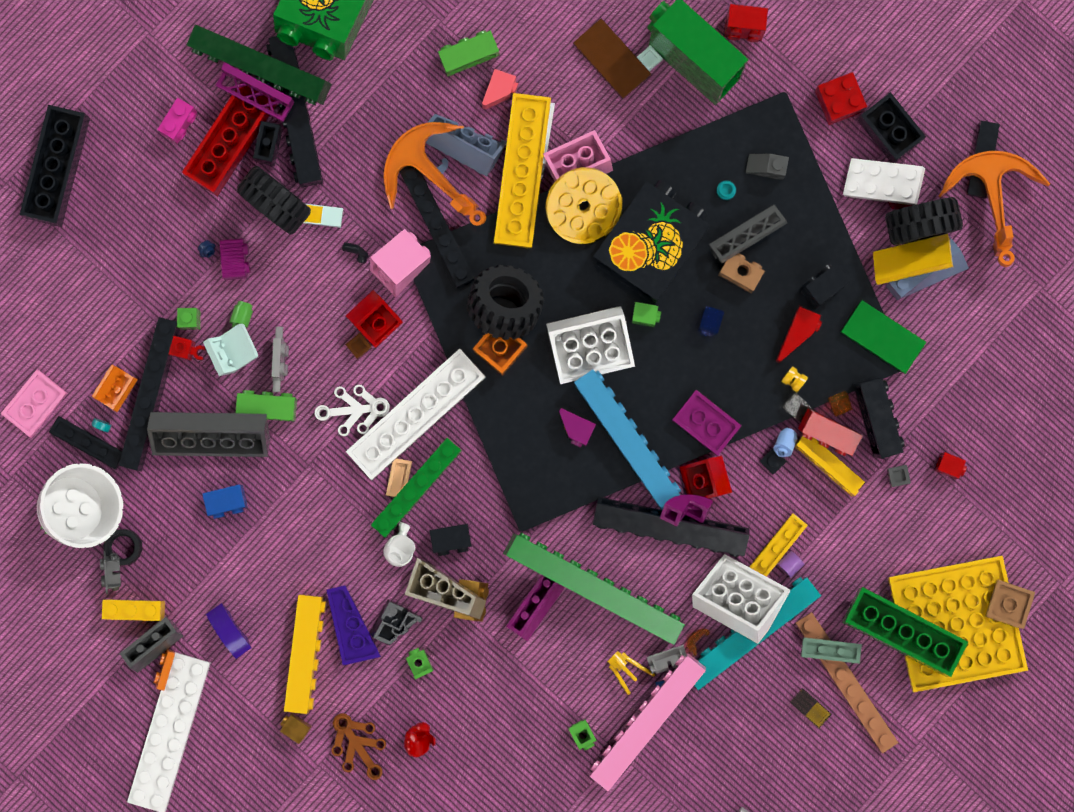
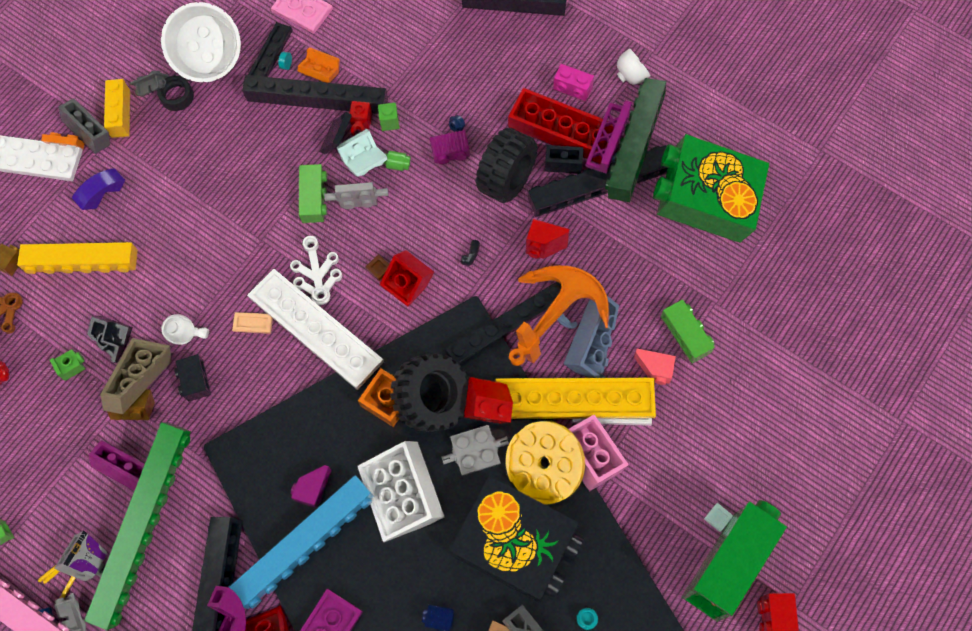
camera: 85 degrees right, 15 degrees down
(171, 57) = (631, 68): none -> white cylinder
(202, 375) = (335, 133): none -> black tile
(208, 434) = (279, 145): dark grey brick -> none
(224, 501) = (221, 170): blue brick -> none
(324, 216) = (503, 220): light aqua tile -> none
(351, 632) = (103, 296): dark purple wing -> none
(354, 176) = (545, 239): none -> red slope
(399, 262) = (464, 291): bright pink slope -> none
(416, 488) = (242, 338): green brick -> none
(520, 248) = (488, 401): none -> red slope
(560, 271) = (475, 450): none -> light grey plate
(612, 58) = (710, 477): reddish brown tile -> none
(616, 645) = (82, 558): none -> torso
(646, 314) = (438, 545): bright green brick -> none

